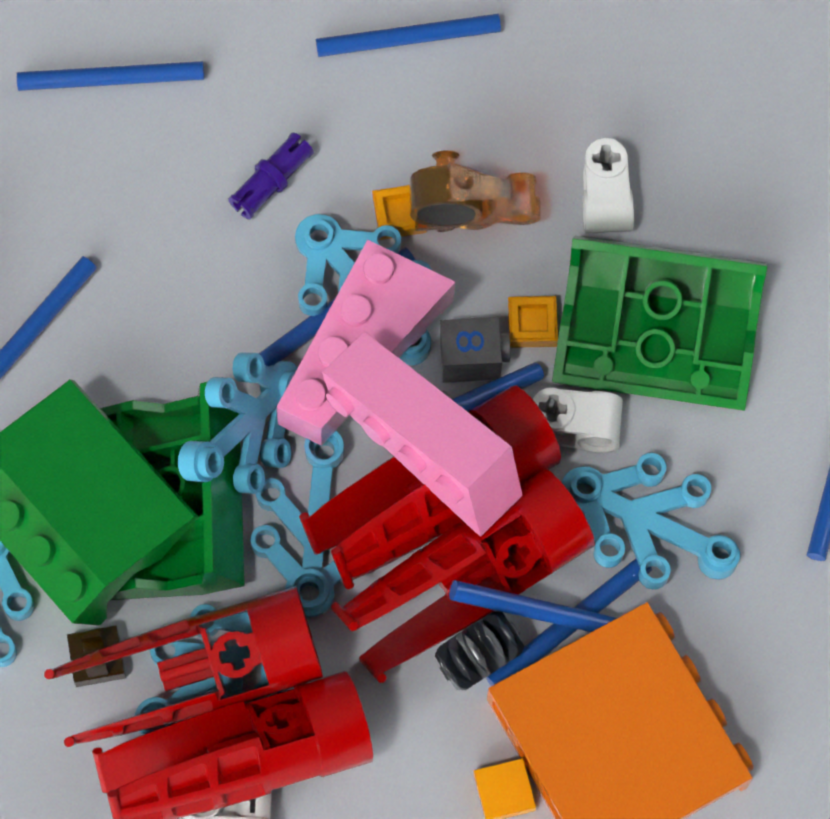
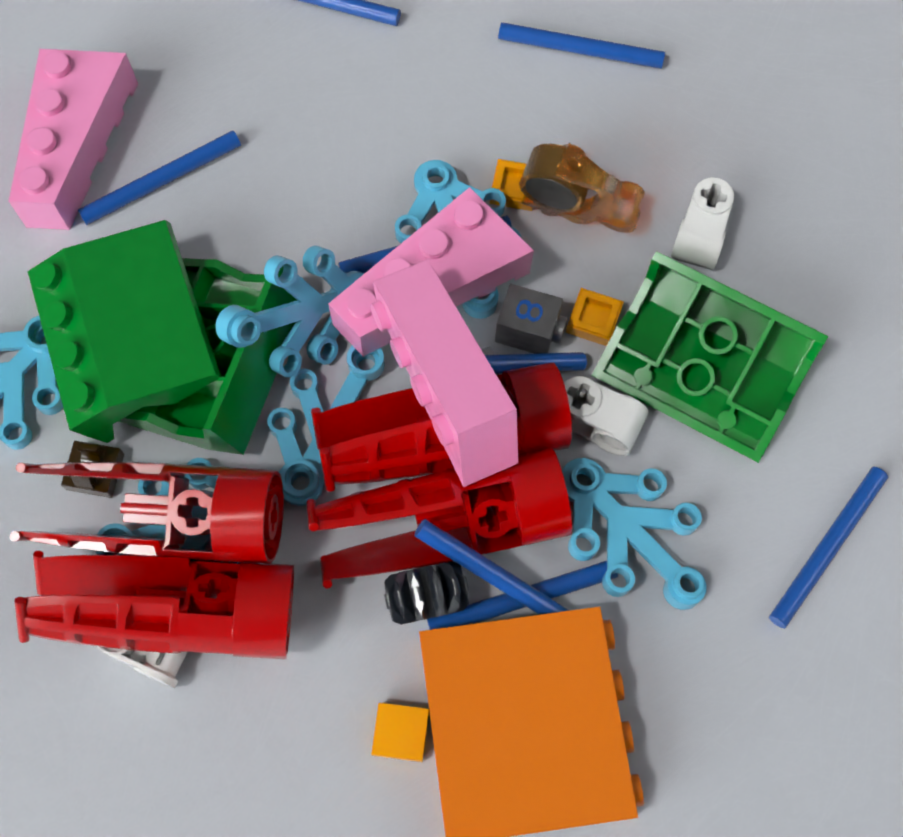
camera: 20 degrees right, 0 degrees up
(271, 175) = (417, 118): dark purple pin -> none

